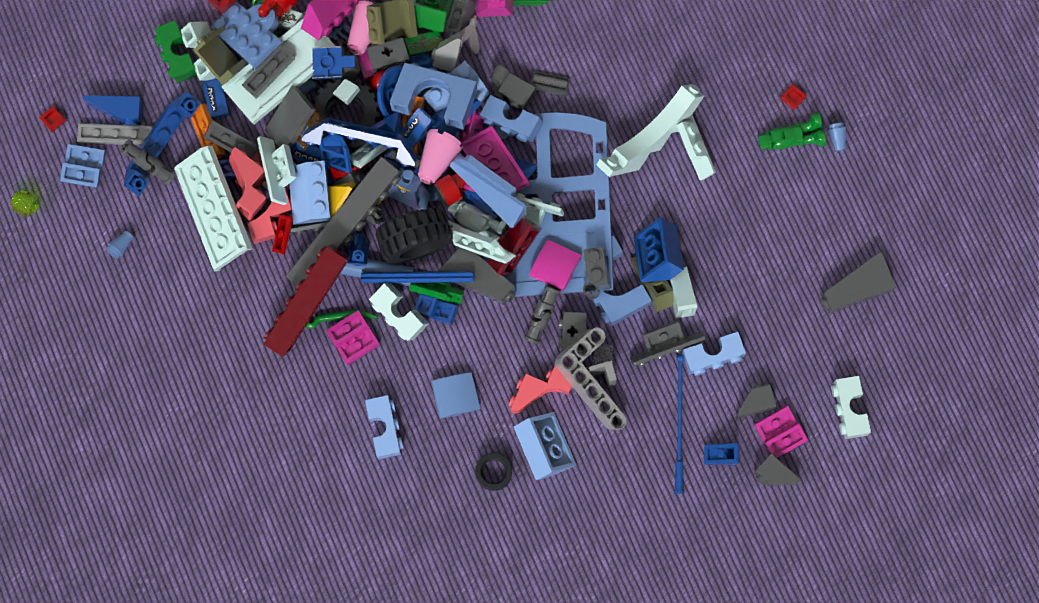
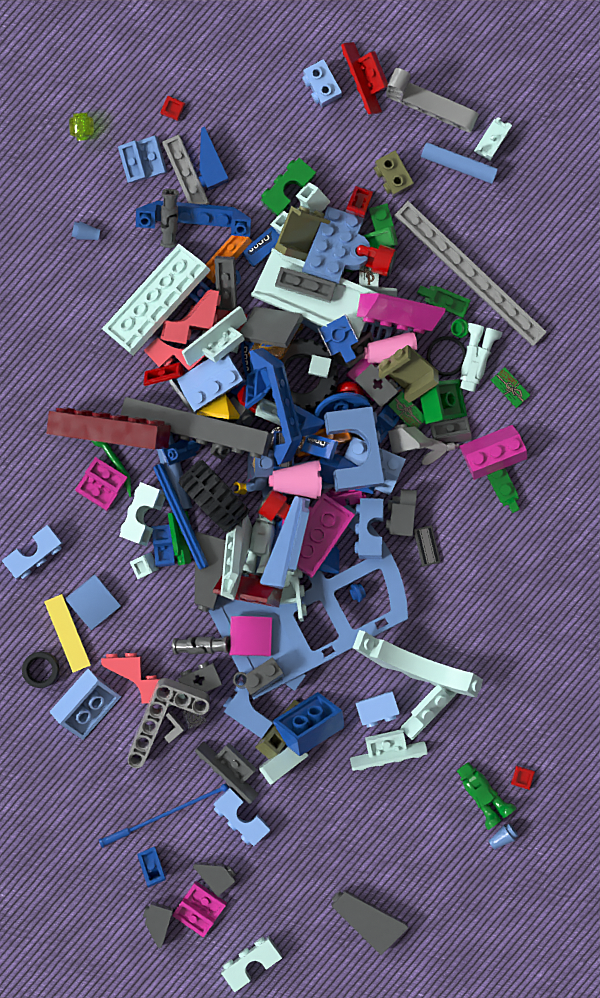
camera: 70 degrees right, 10 degrees up
(445, 335) = (144, 565): none -> light aqua slope
(472, 432) = (67, 633): none -> light yellow tile
(561, 159) = (357, 592): none -> blue plate
(673, 188) = (377, 708): none -> light blue brick
(713, 198) = (386, 749): none -> light aqua bracket

